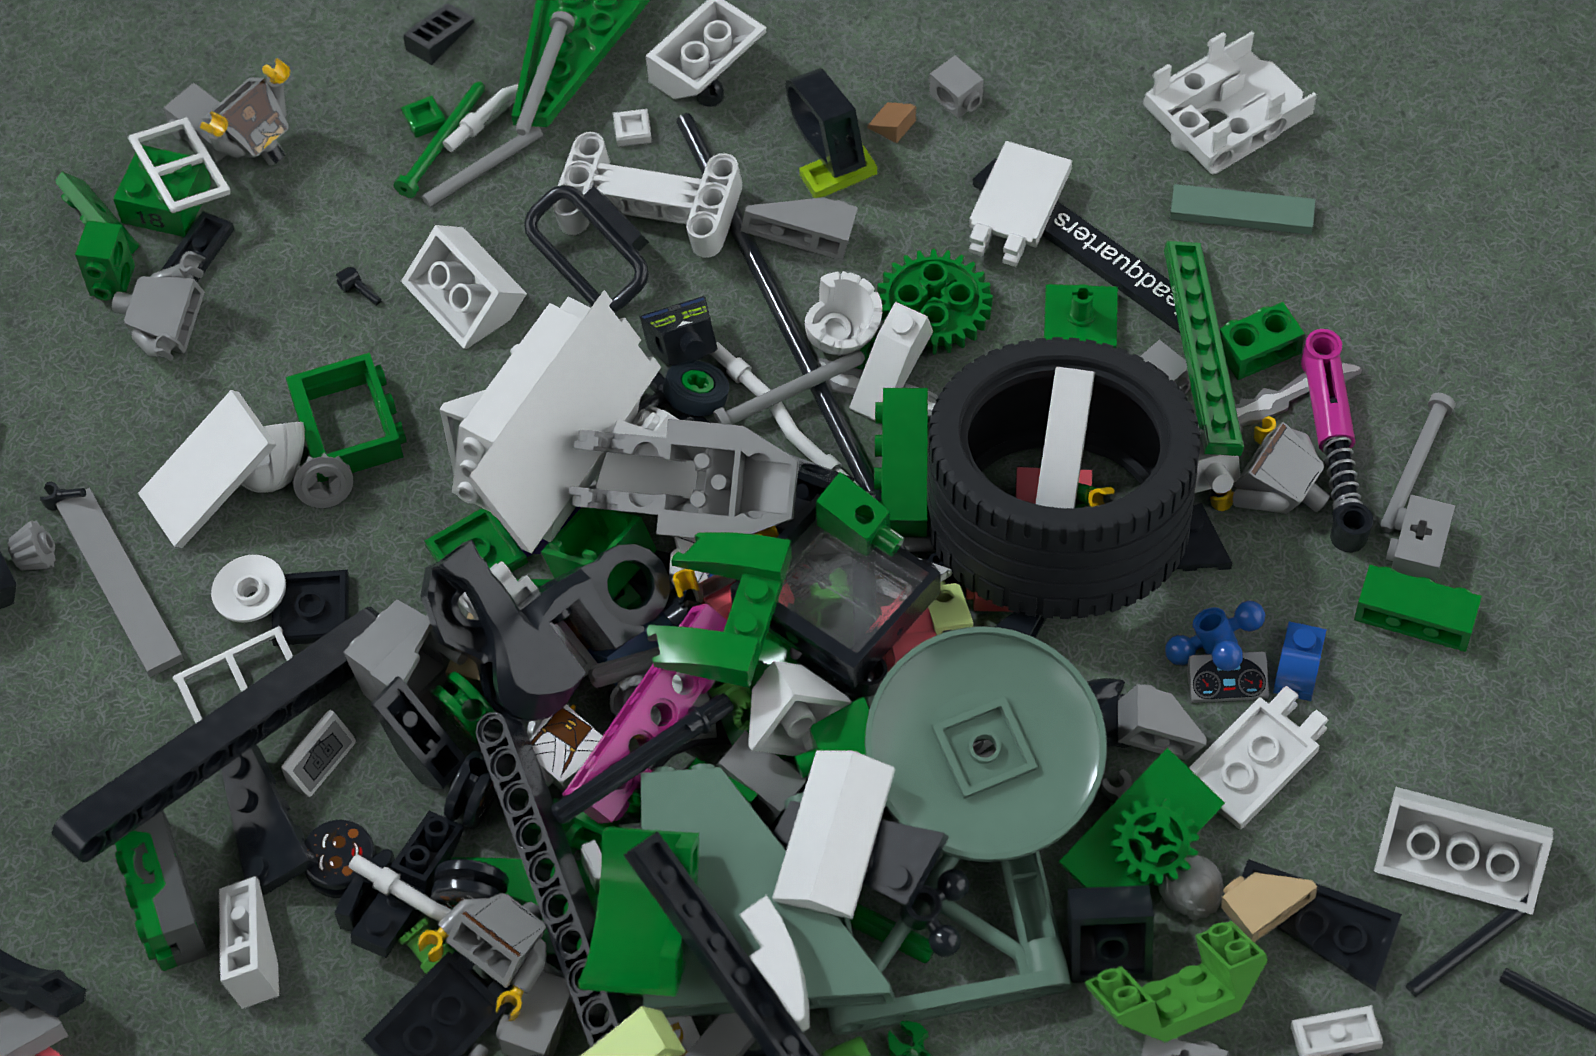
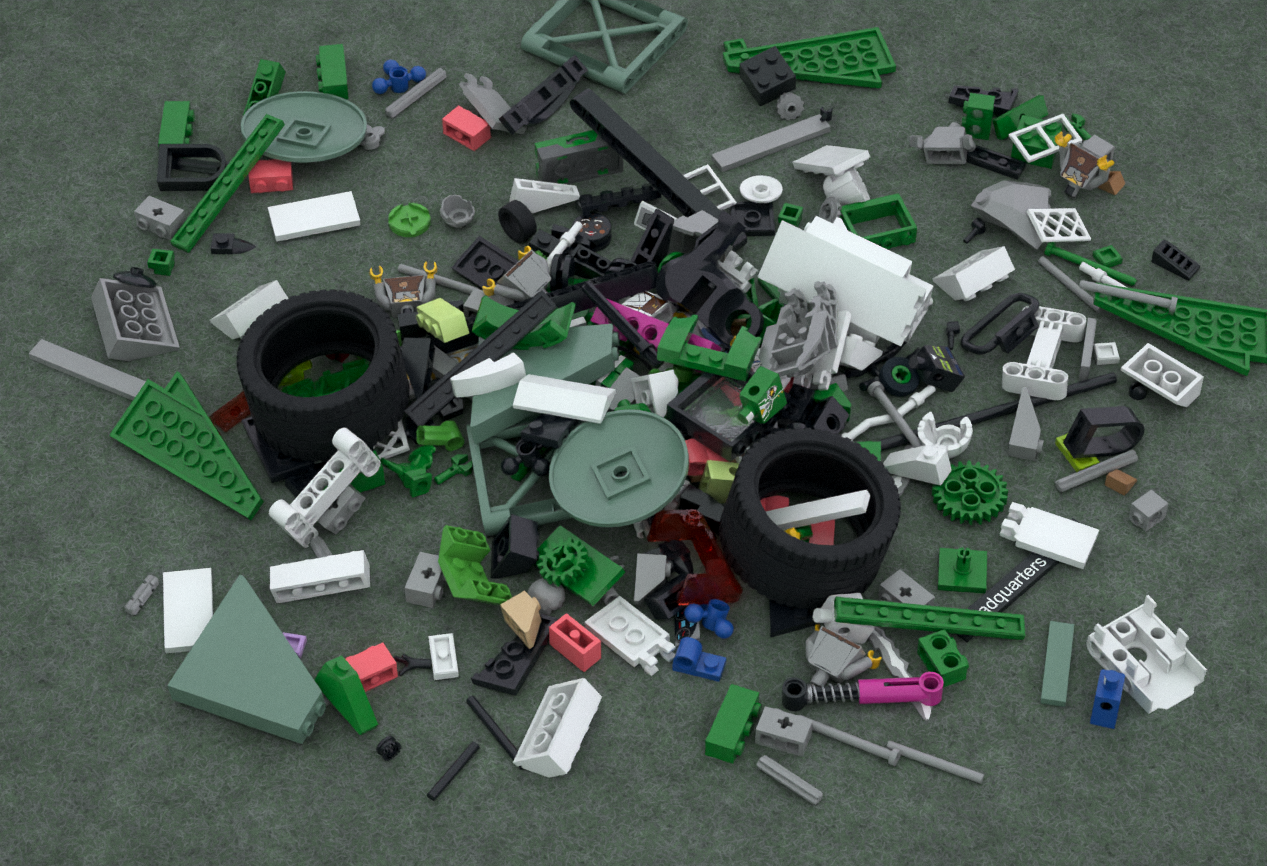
camera: 90 degrees right, 10 degrees down
(43, 262) = (1003, 100): none -> black wing
(116, 143) = (1078, 122): none -> green bar
(313, 536) = (791, 214): none -> green piece
(322, 977) = (517, 221): none -> black tyre
(331, 213) = (1007, 205): none -> light grey brick
(379, 180) = (1040, 226): none -> white window
(641, 144) = (1087, 349): none -> light grey tile
(884, 158) = (1096, 470): none -> light grey axle
(1133, 626) = (719, 580): none -> clear red windscreen
(1191, 684) = (664, 600): none -> black brick
(1298, 827) = (575, 642): none -> coral brick
(1311, 143) = (1108, 690): none -> blue torso
(1438, 358) = (937, 762): none -> light grey bar
(1501, 536) = (789, 780): none -> light grey axle

